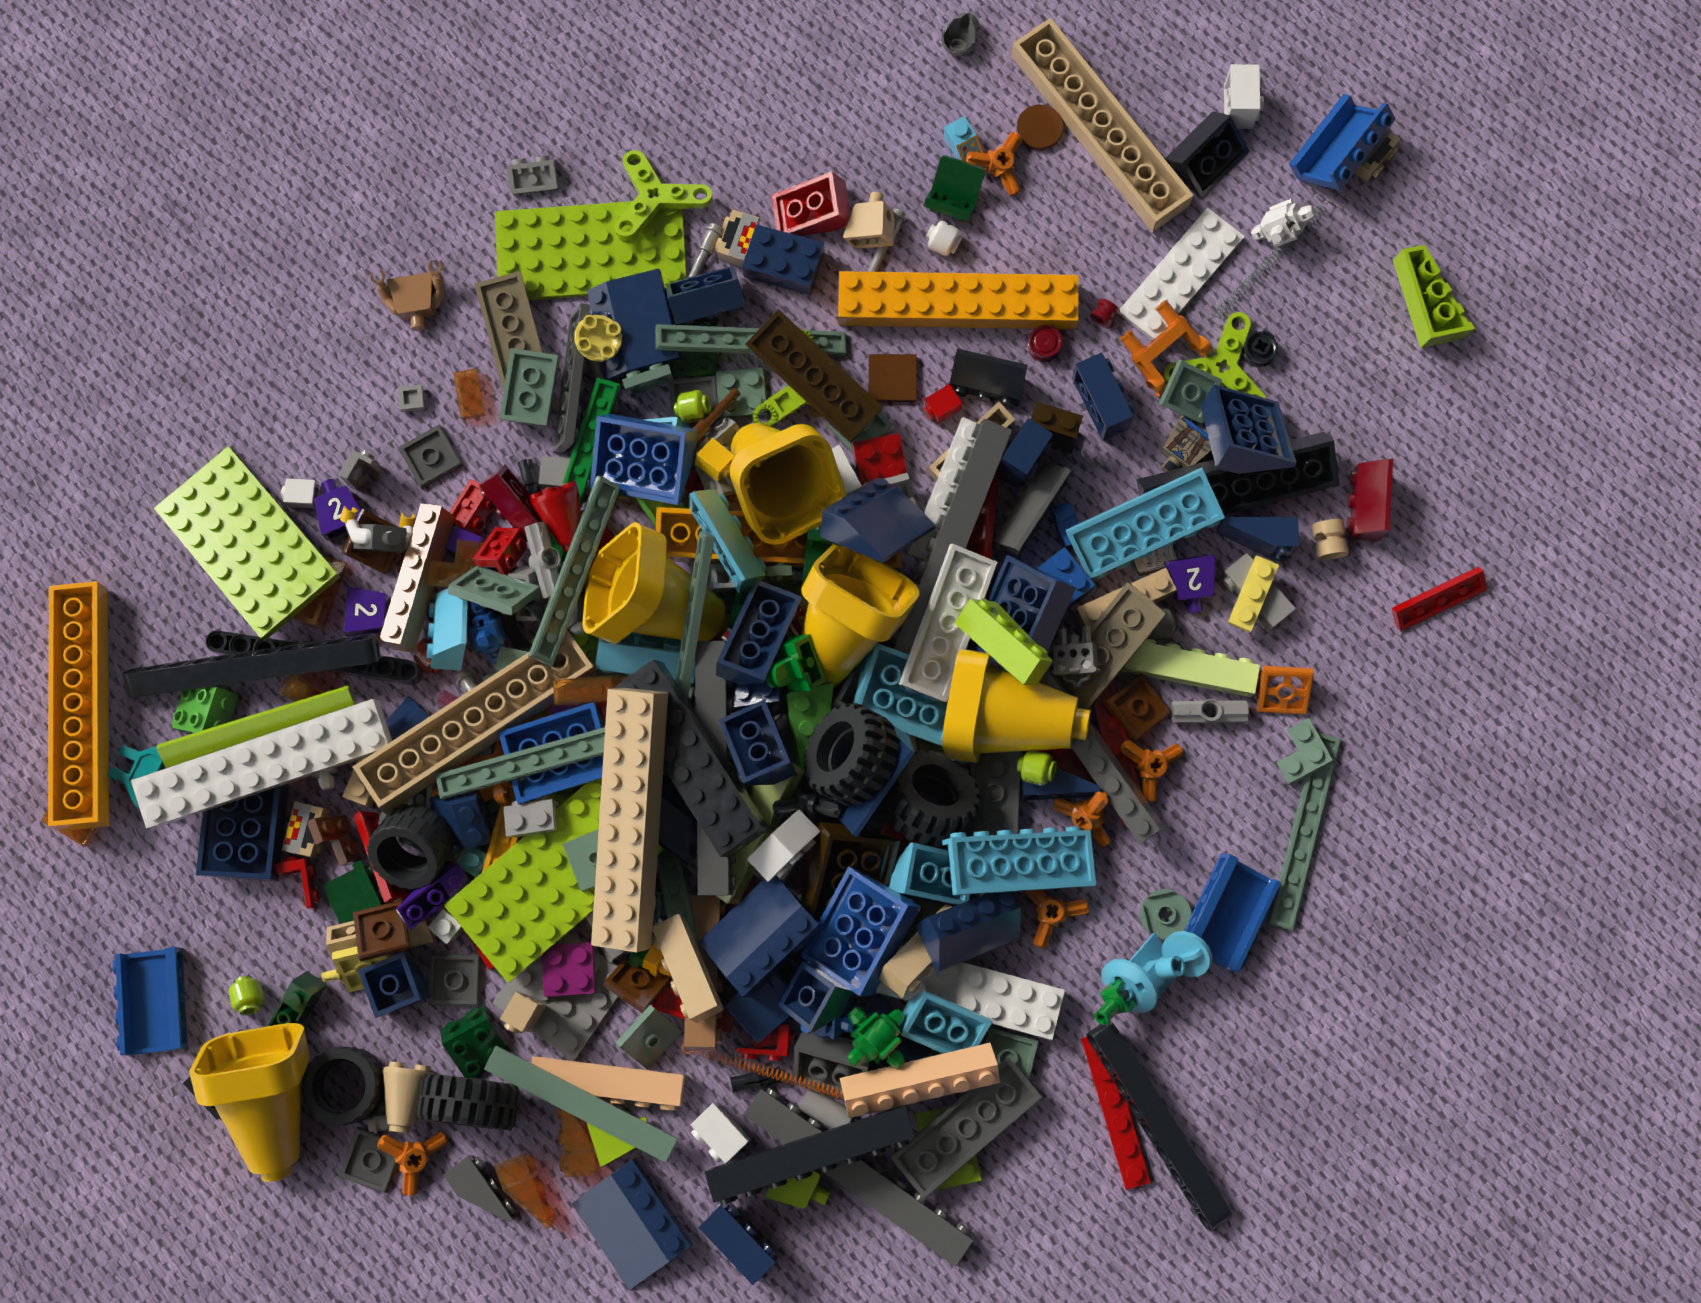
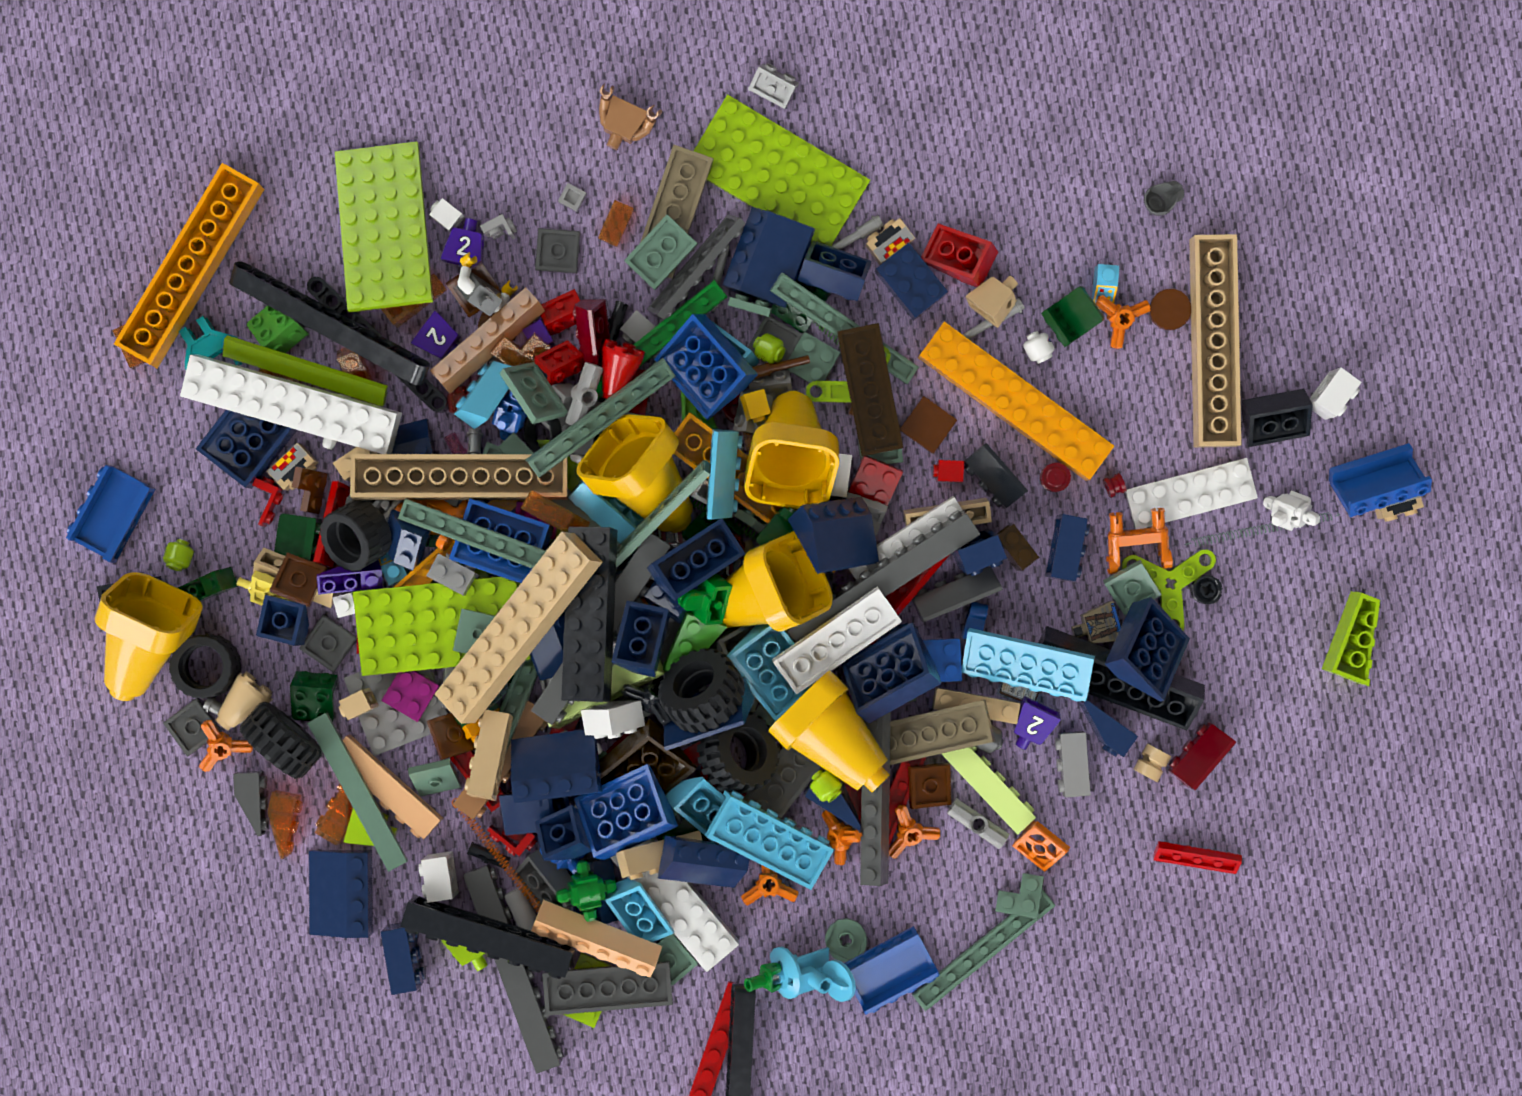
camera: 30 degrees right, 10 degrees up
(598, 337) = (734, 252): light yellow dish -> none
(669, 196) = (862, 174): lime piece -> none
(1004, 640) = (864, 686): lime wedge -> none
(1075, 665) = (904, 729): light grey piece -> none
(1253, 594) = (1067, 765): light yellow plate -> none

